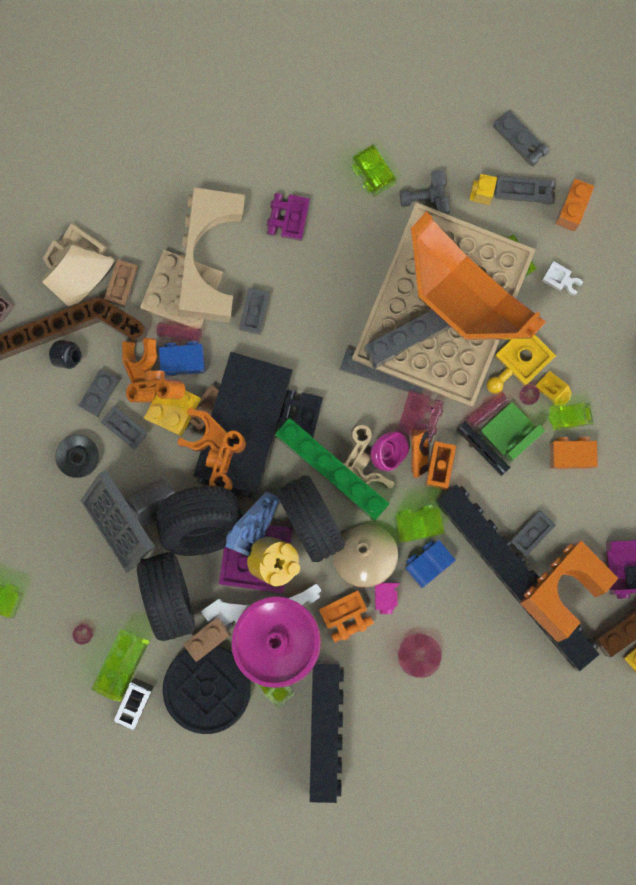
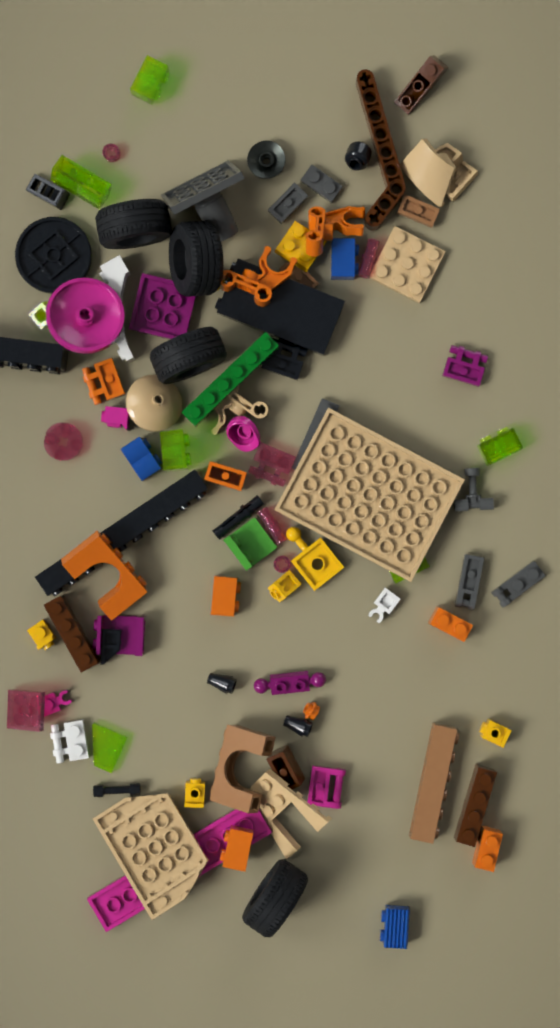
camera: 90 degrees right, 5 degrees up
(197, 297) = (475, 291): tan arch -> none
(207, 639) = (94, 258): medium nougat plate -> none
(252, 524) = (182, 302): medium blue plate -> none
(254, 311) = (381, 327): dark grey plate -> none
(273, 561) = (155, 320): yellow brick -> none
(397, 341) = (340, 456): dark grey arch -> none
(419, 452) = (239, 459): orange slope -> none
(464, 292) = (374, 509): orange panel -> none
(483, 189) = (472, 543): yellow brick -> none
(532, 533) = (158, 552): dark grey plate -> none
(570, 416) = (258, 596): clear neon green brick -> none

